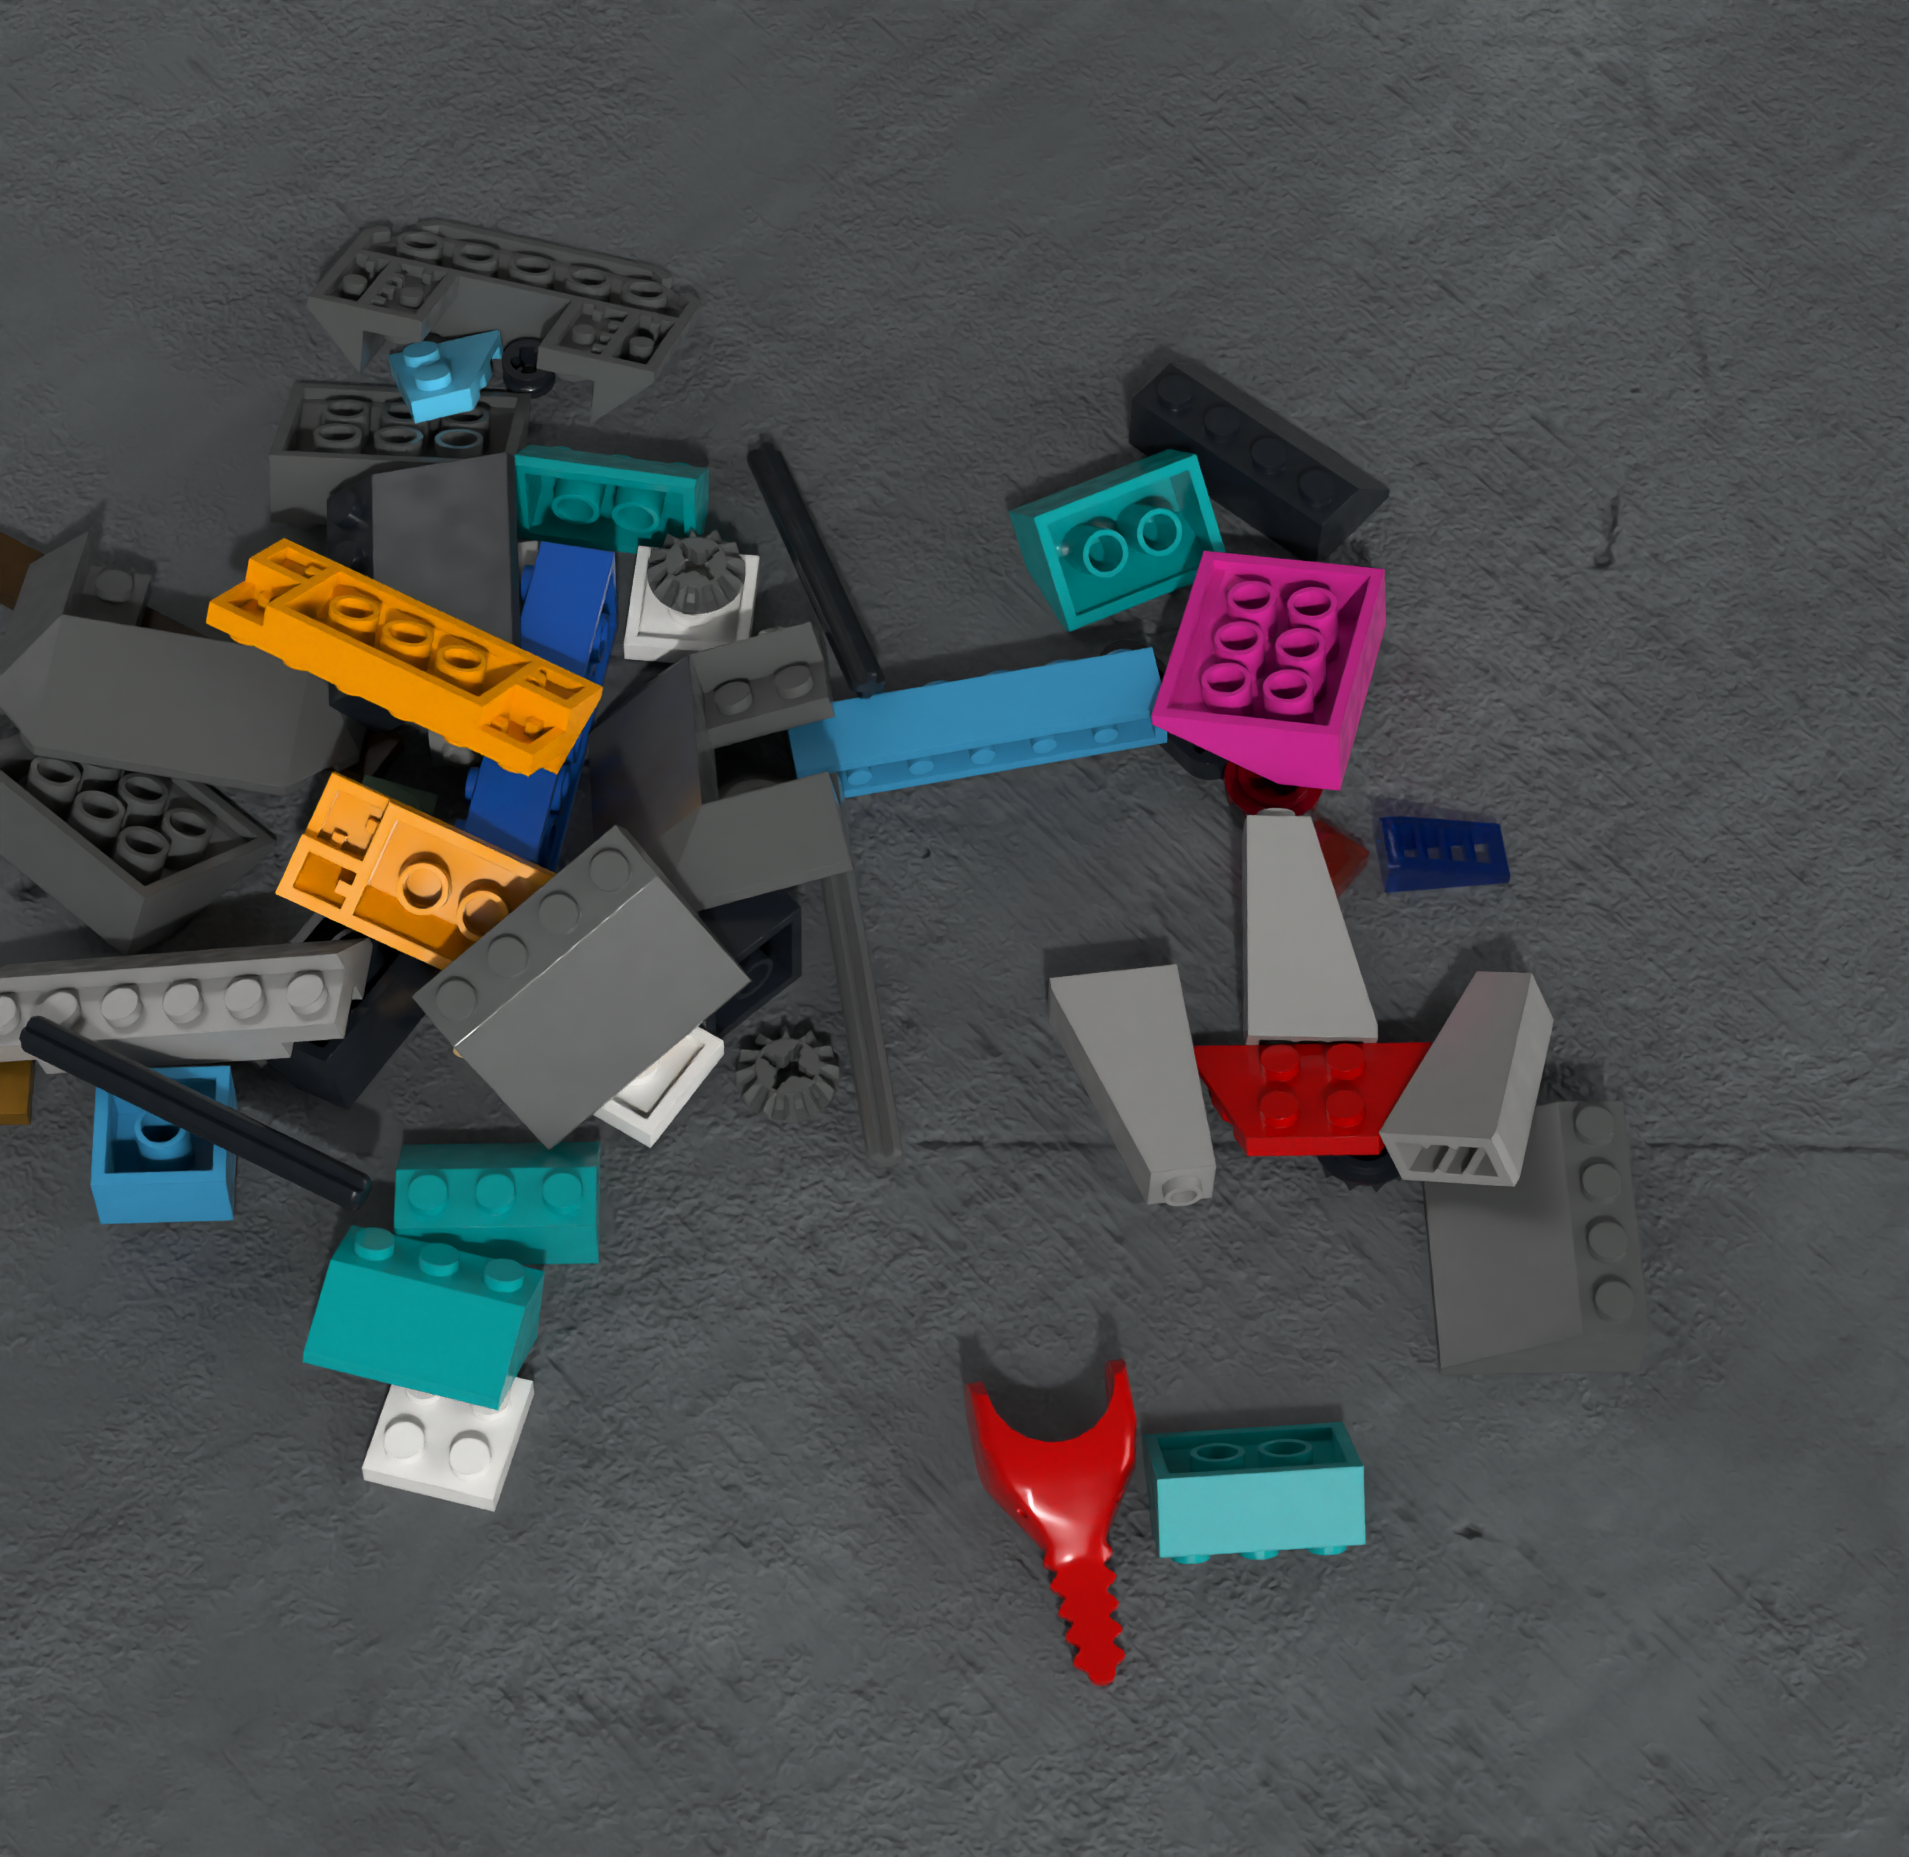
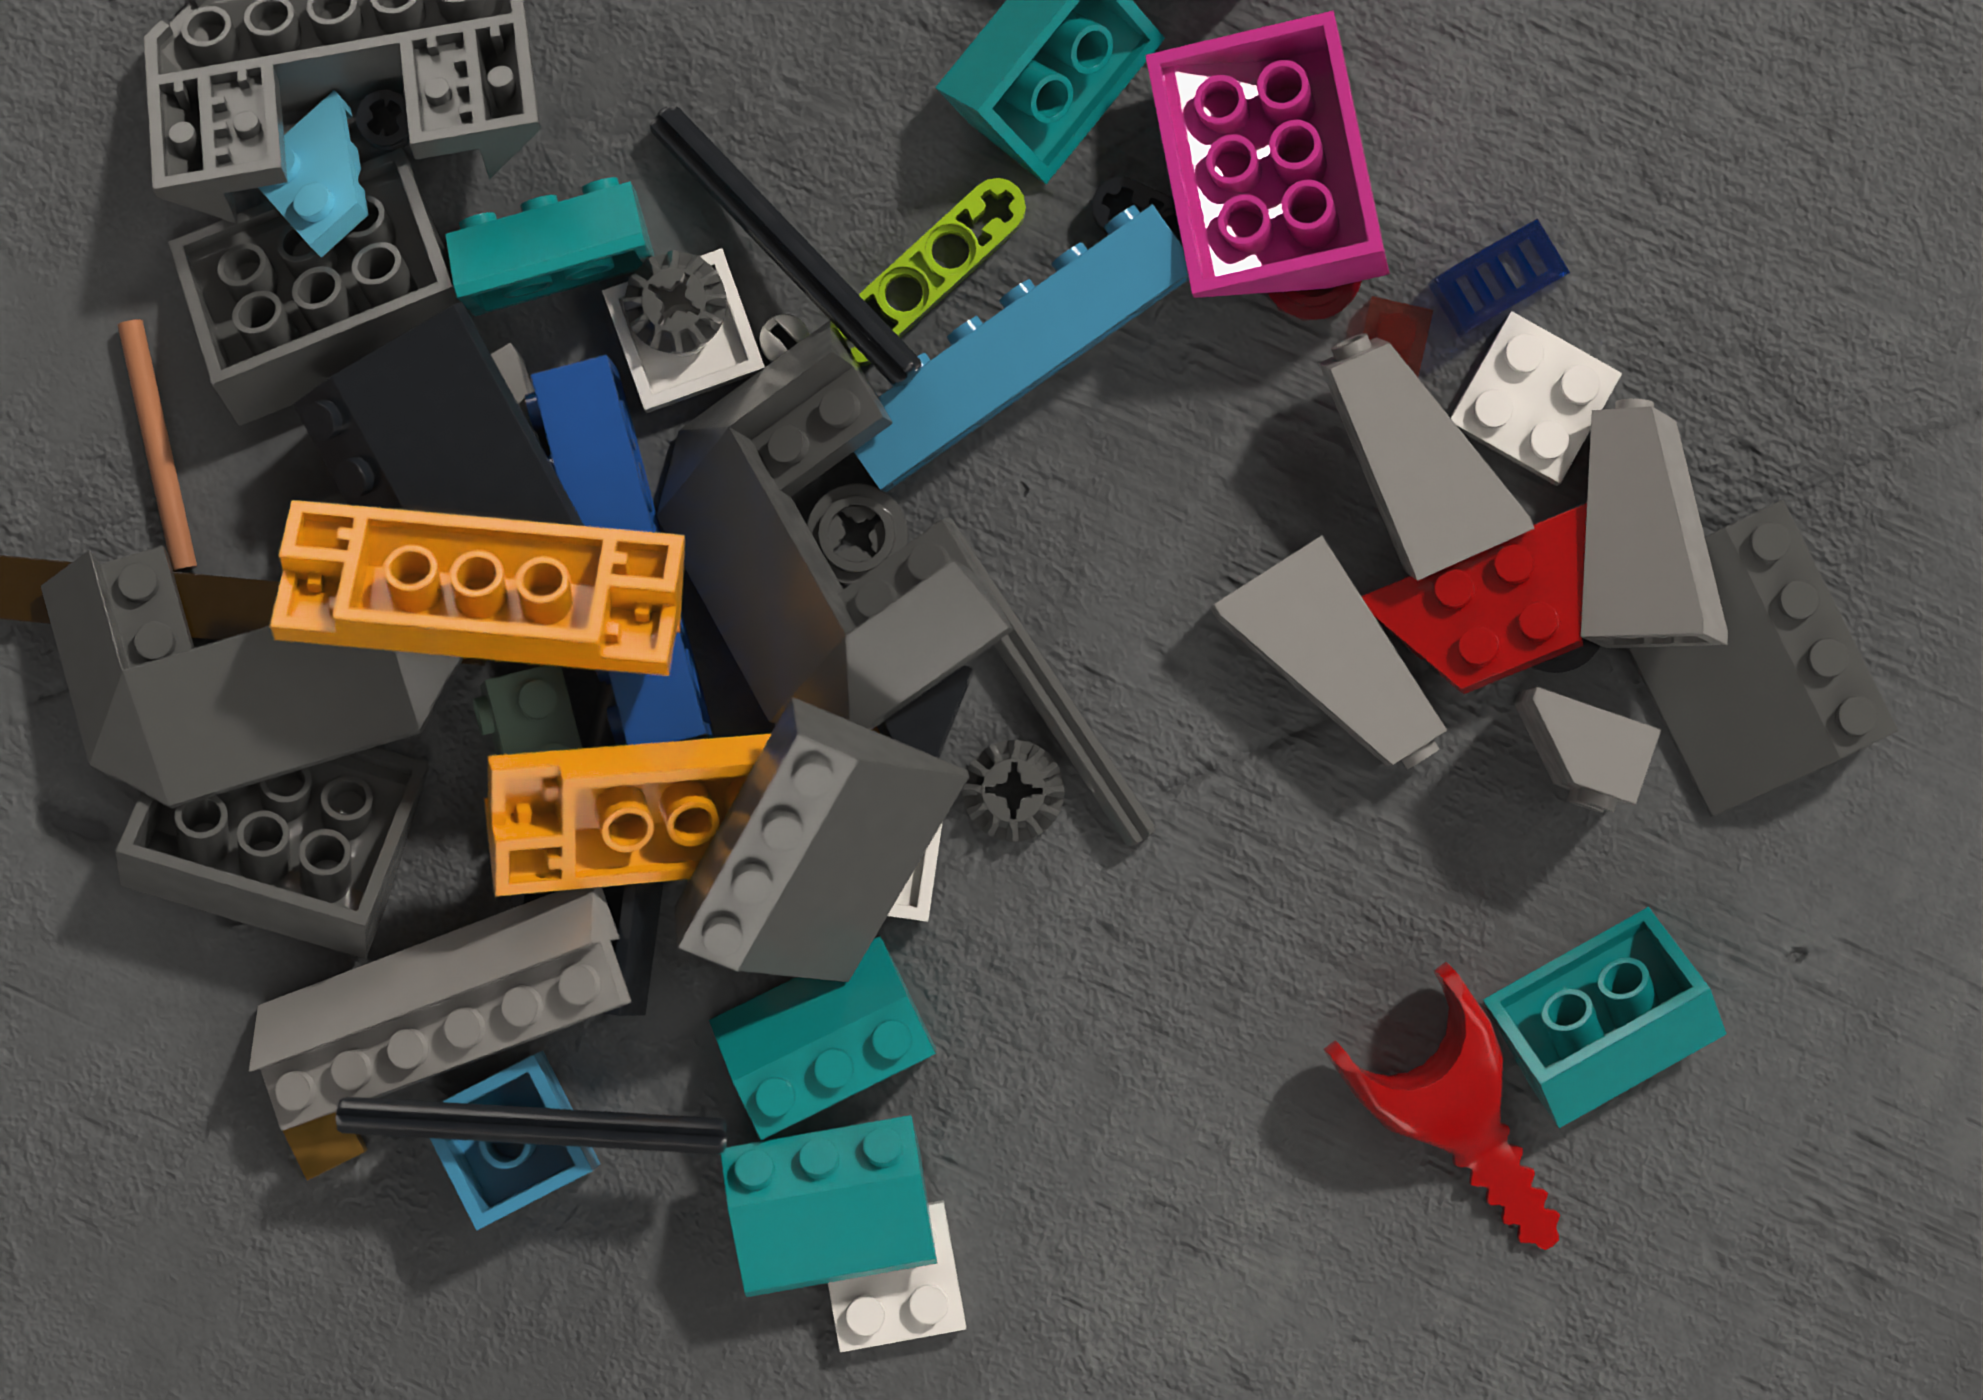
camera: 25 degrees left, 30 degrees up
(193, 516) = (157, 445): none -> nougat bar
(936, 663) = (940, 281): none -> lime beam
(1347, 1232) = (1588, 748): none -> light grey slope
(1425, 957) = (1534, 398): none -> white plate

